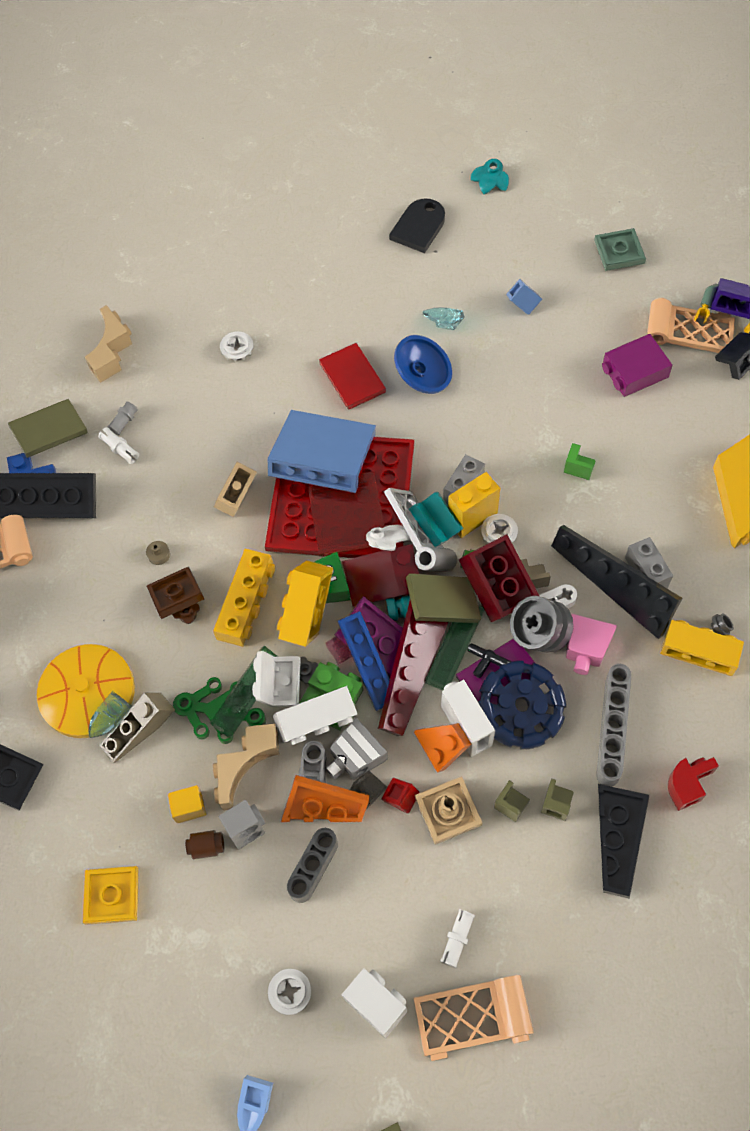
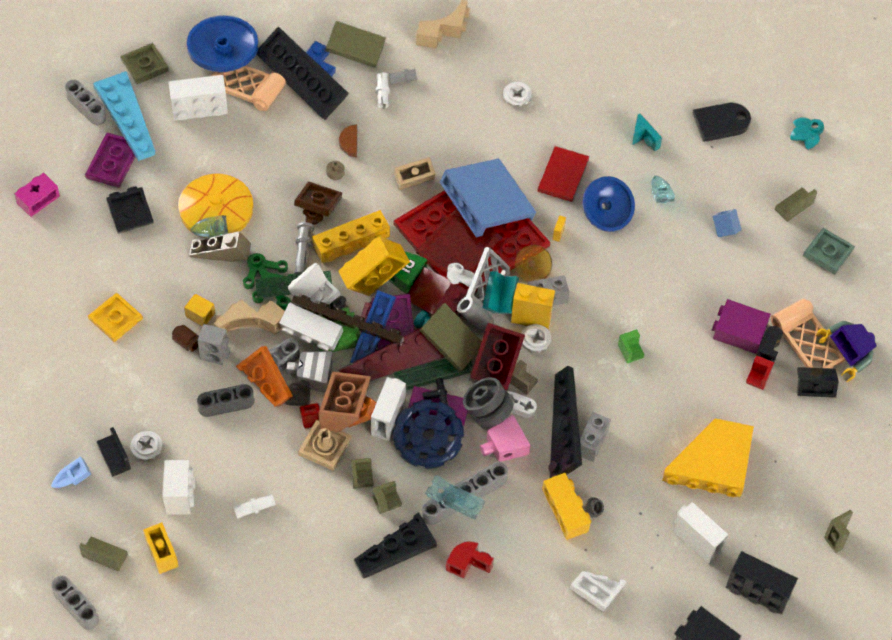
camera: 40 degrees right, 5 degrees down
(139, 515) = (348, 140): none -> dark orange tile
(207, 643) = (303, 243): none -> light grey pin
(268, 1036) = (114, 453): none -> black panel
(334, 677) = (374, 329): none -> dark brown wing
(373, 282) = (645, 131): none -> teal slope
(406, 421) = (559, 228): none -> yellow tile
(425, 752) = (343, 400): none -> nougat slope
(429, 1083) = (160, 548): none -> yellow brick
(430, 468) = (542, 261): none -> clear yellow dish
(509, 1008) = (240, 557): light nougat piece -> none
(551, 236) = (795, 203): none -> olive panel
(621, 737) = (455, 497): none -> clear light blue plate
(681, 367) = (769, 342): none -> black leg
(695, 387) = (760, 372): none -> red panel

